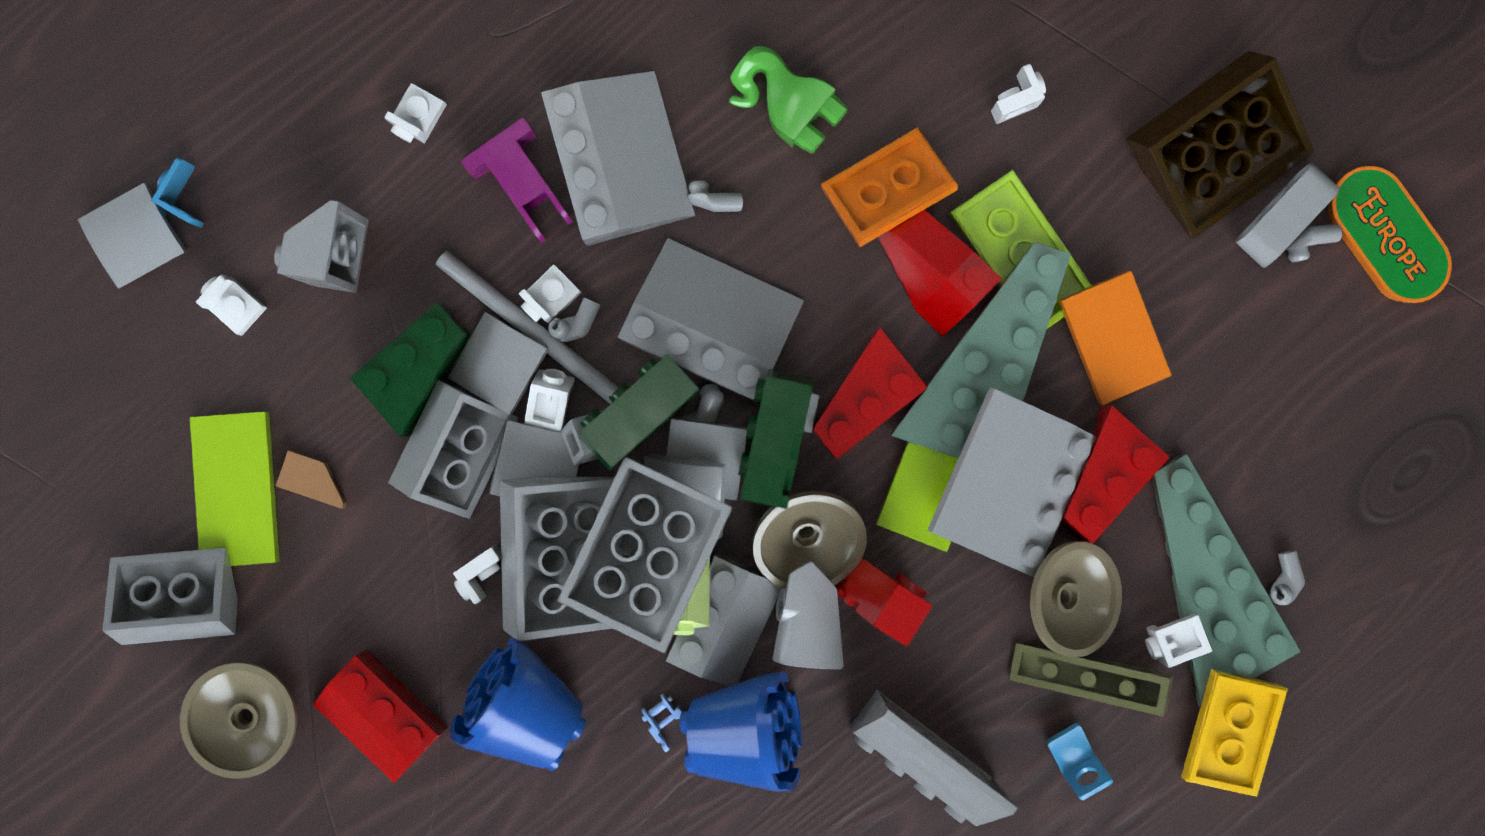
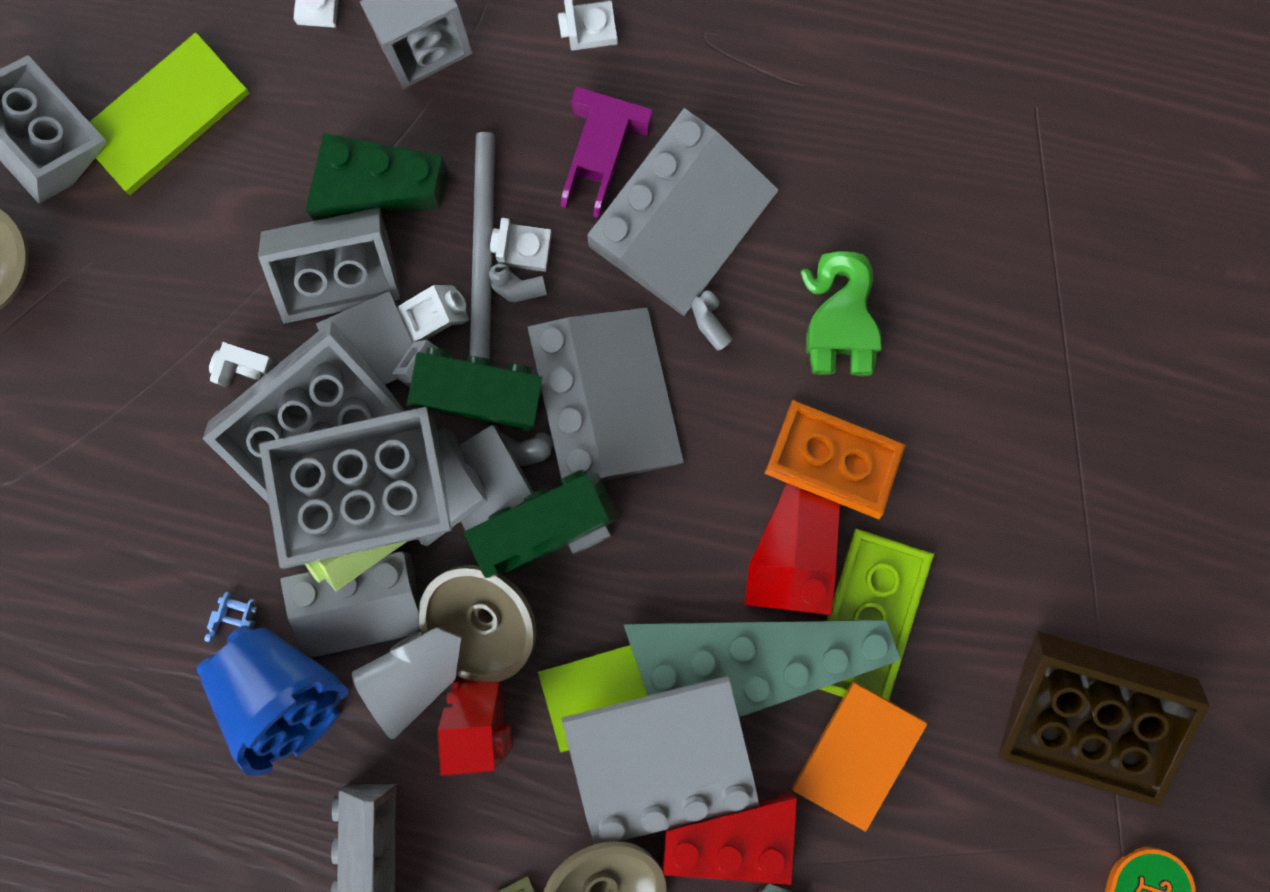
camera: 55 degrees right, 5 degrees down
(310, 478) = (217, 167): medium nougat tile -> none
(379, 715) = (59, 374): red slope -> none
(498, 363) = (431, 247): light grey slope -> none
(518, 710) = (144, 486): blue cone -> none
(868, 396) = (643, 579): red wedge -> none
(1016, 102) = (993, 511): white bracket -> none
(1287, 215) = (1085, 826): light grey beam -> none
(1313, 235) = (1086, 863): light grey arm -> none

